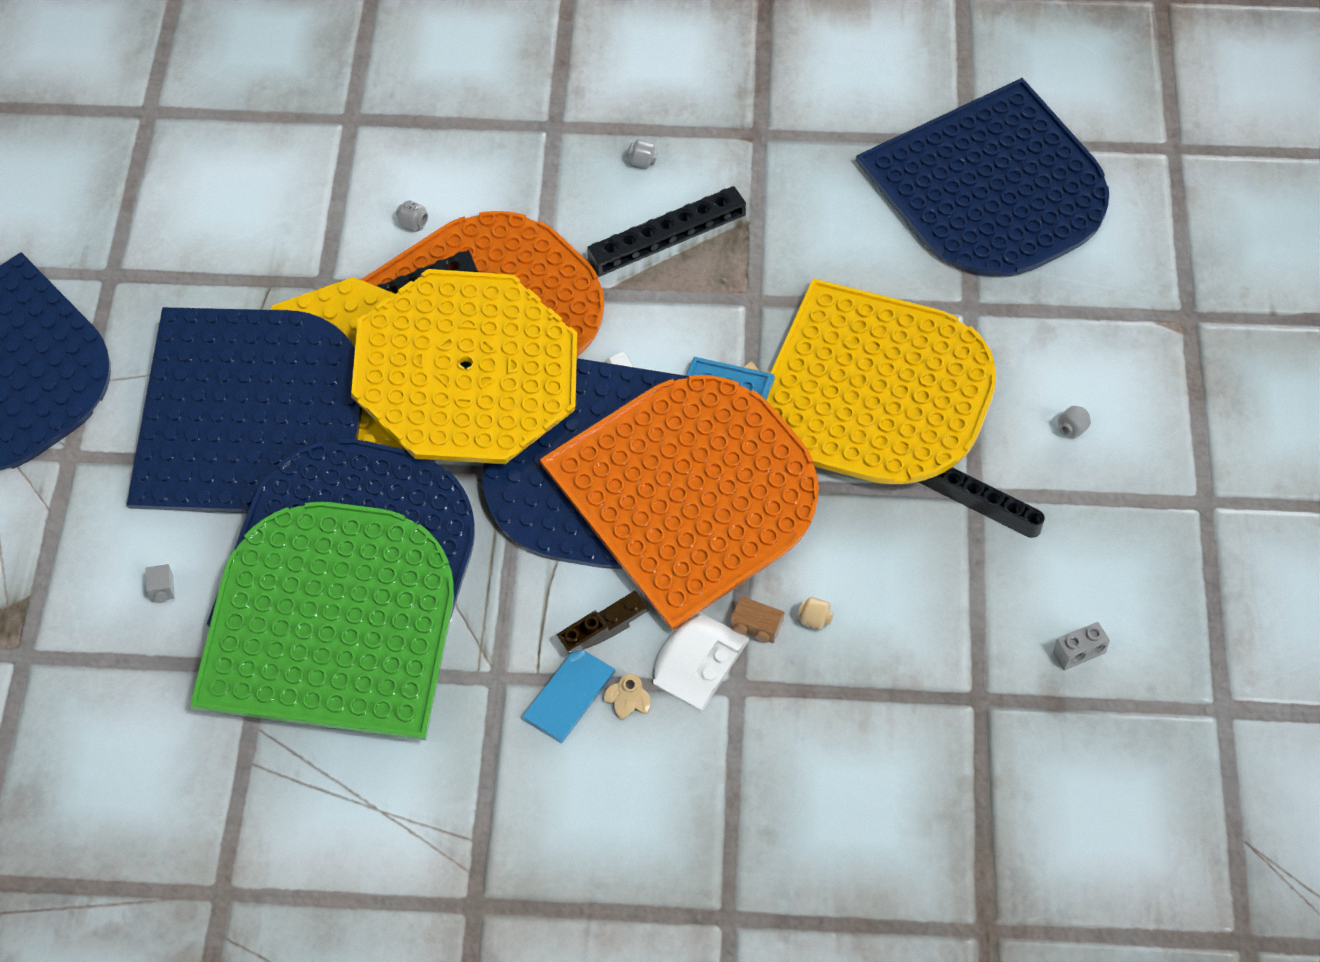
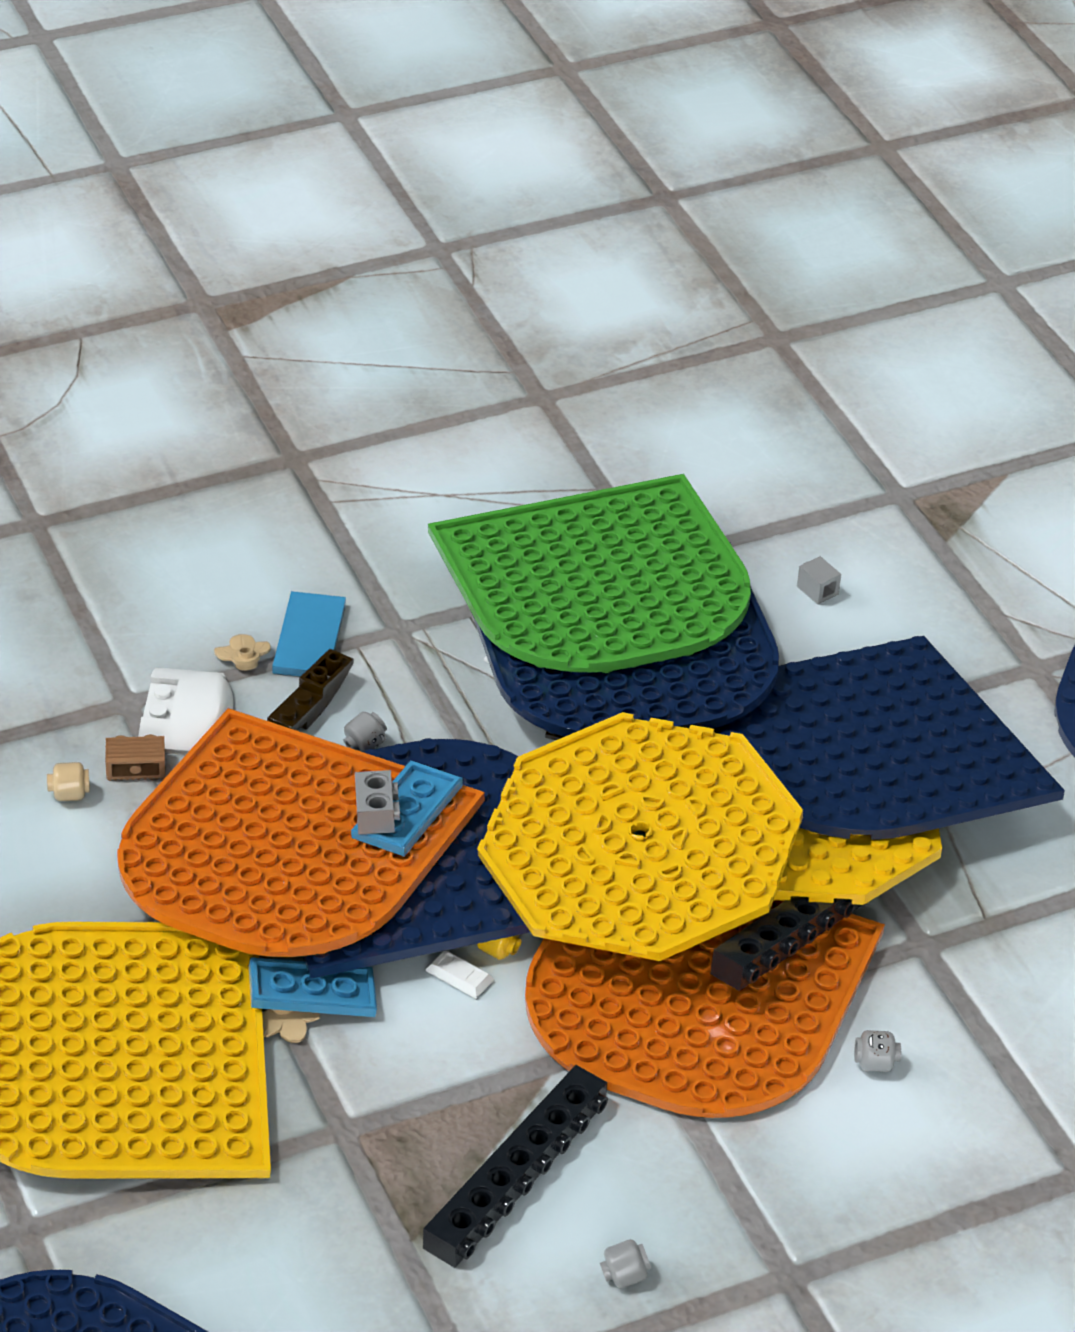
camera: 150 degrees right, 15 degrees down
(582, 574) = (365, 732): none -> light grey head
(600, 463) = (422, 797): none -> dark azure tile
(630, 455) = (375, 802): none -> light grey brick

